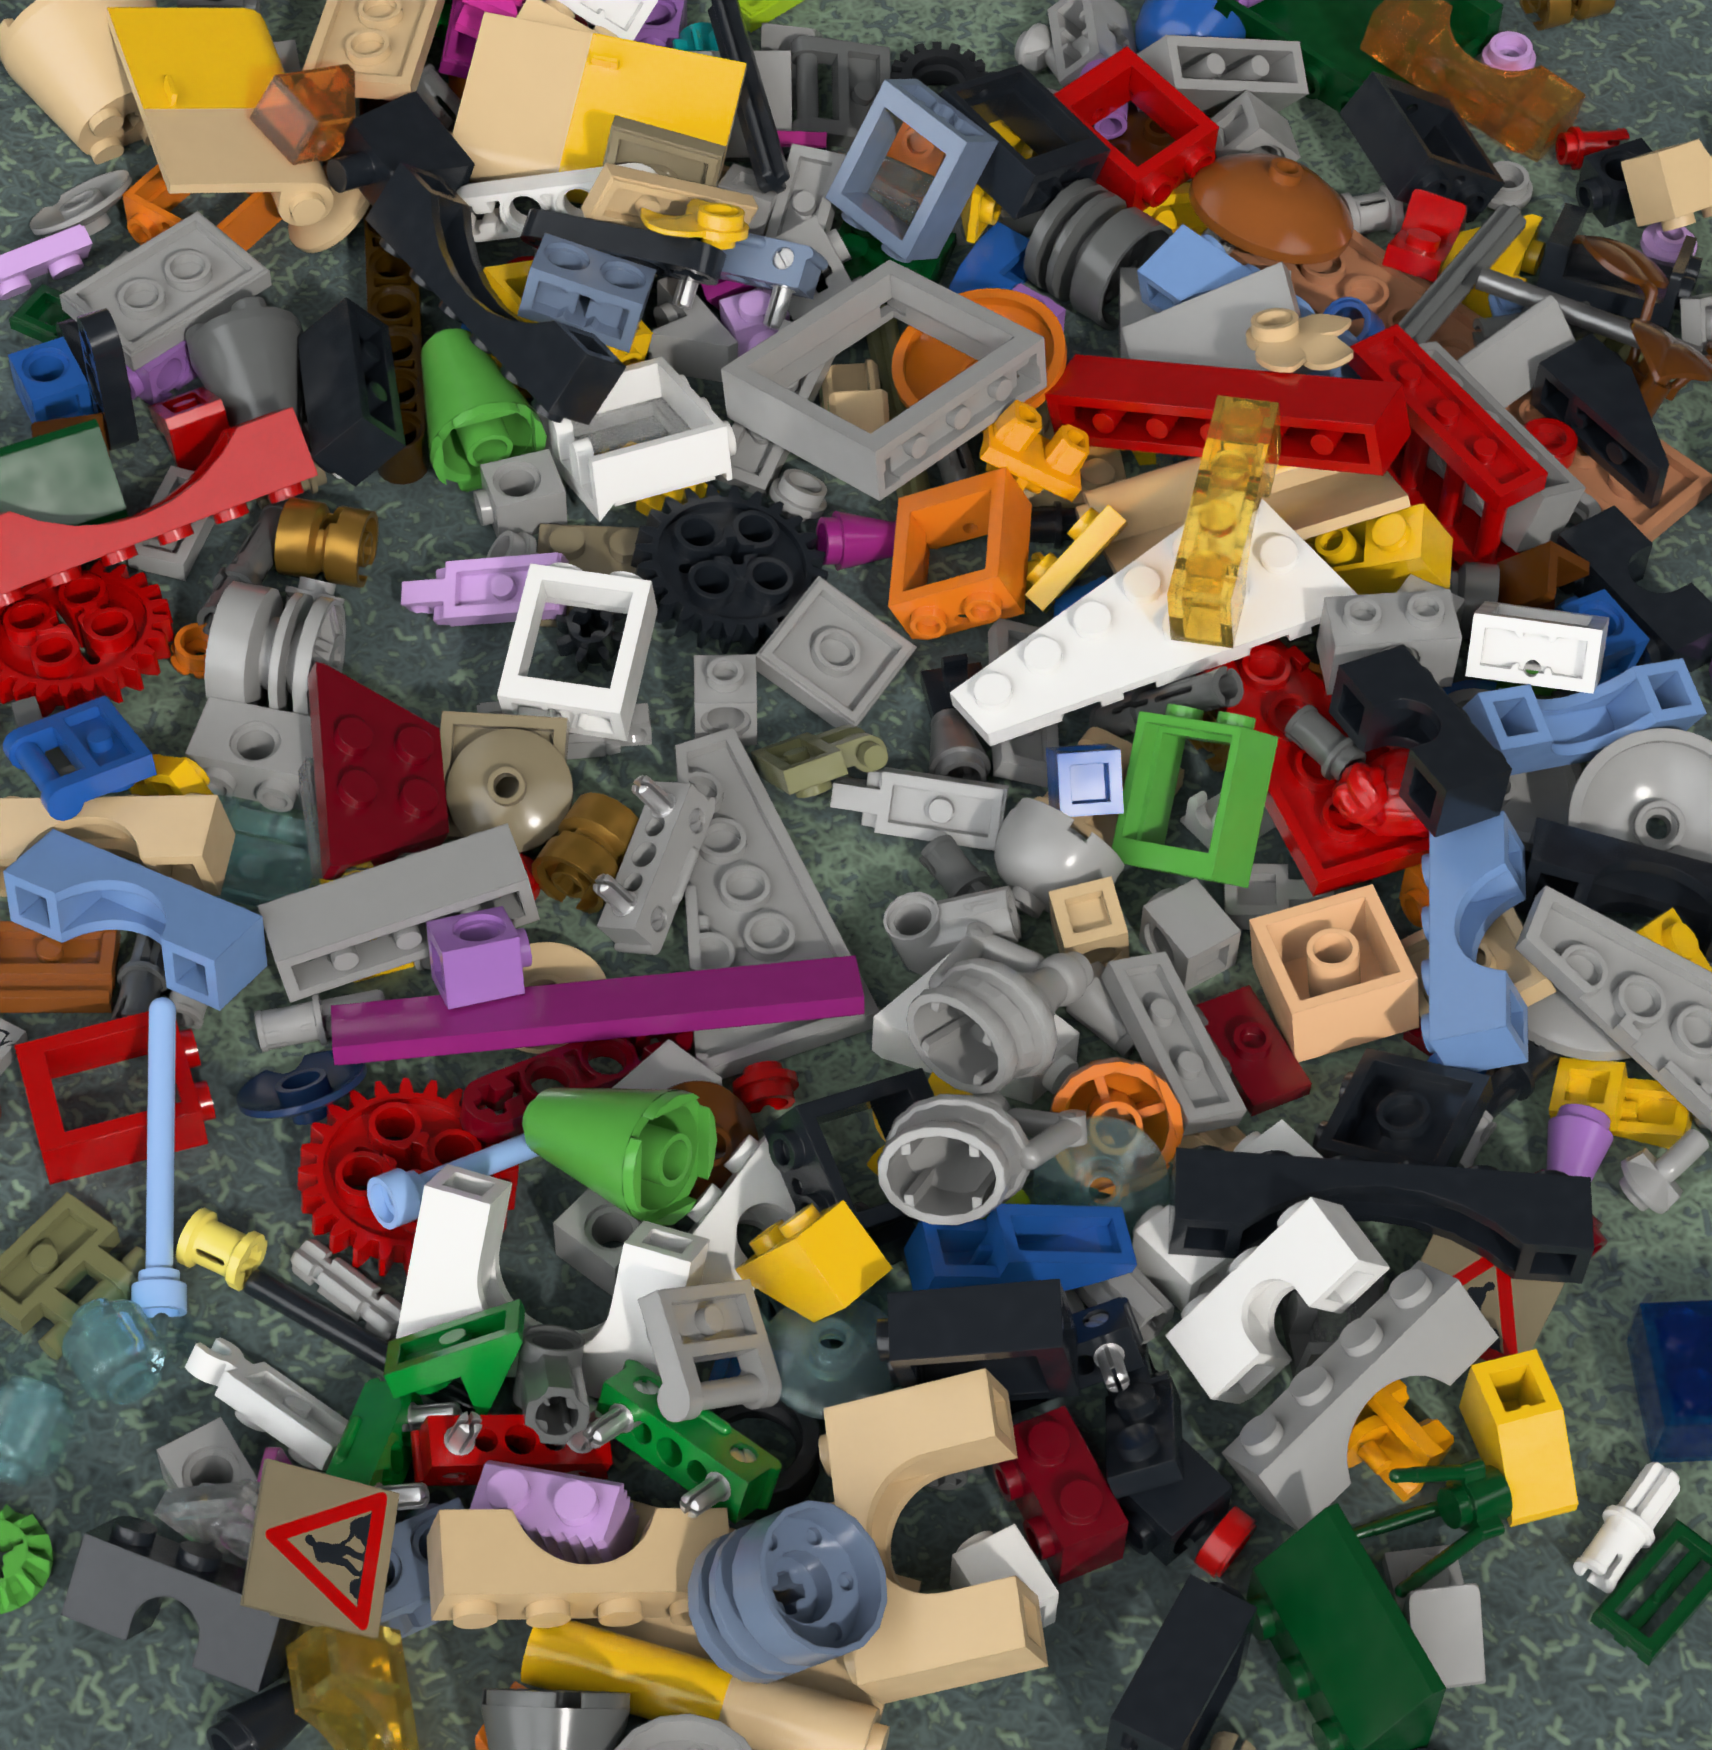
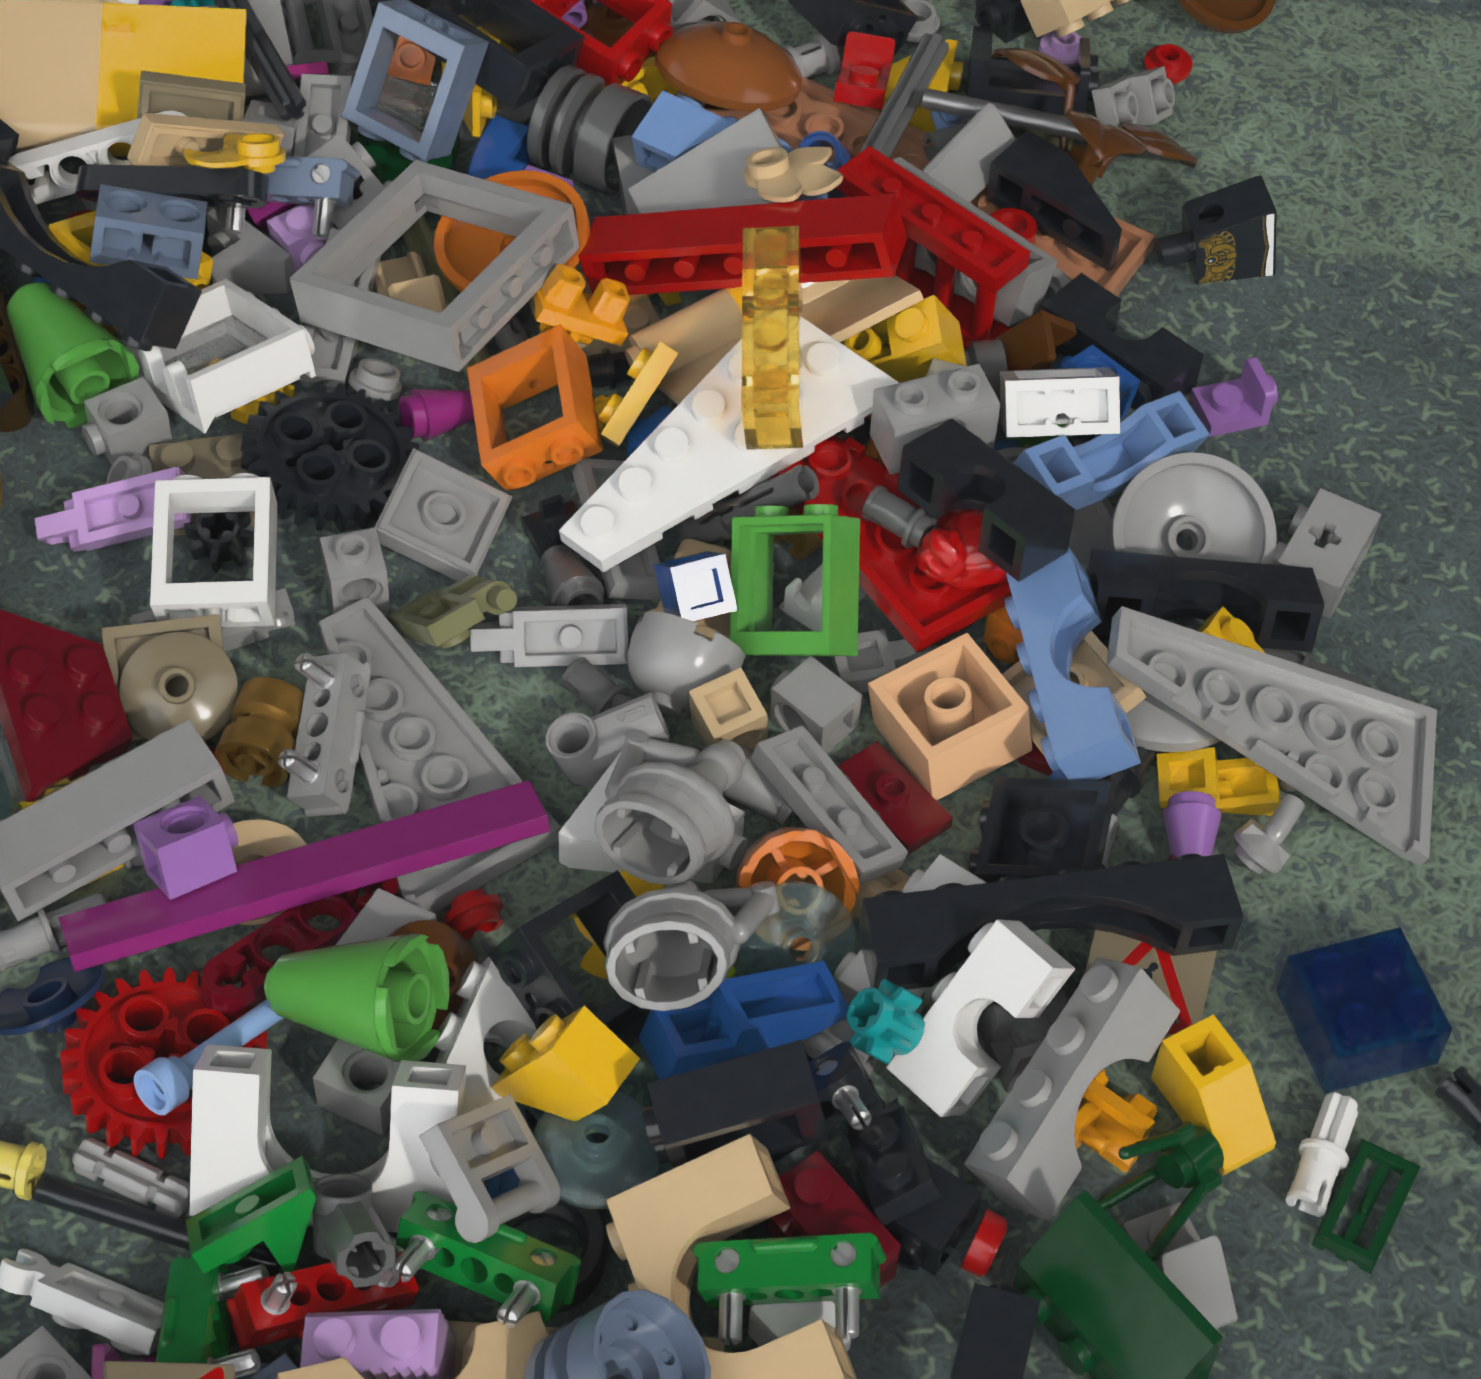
camera: 15 degrees left, 0 degrees up
(998, 1523) = (789, 1272): none -> green piece
(1171, 1284) = (885, 1021): none -> teal gear

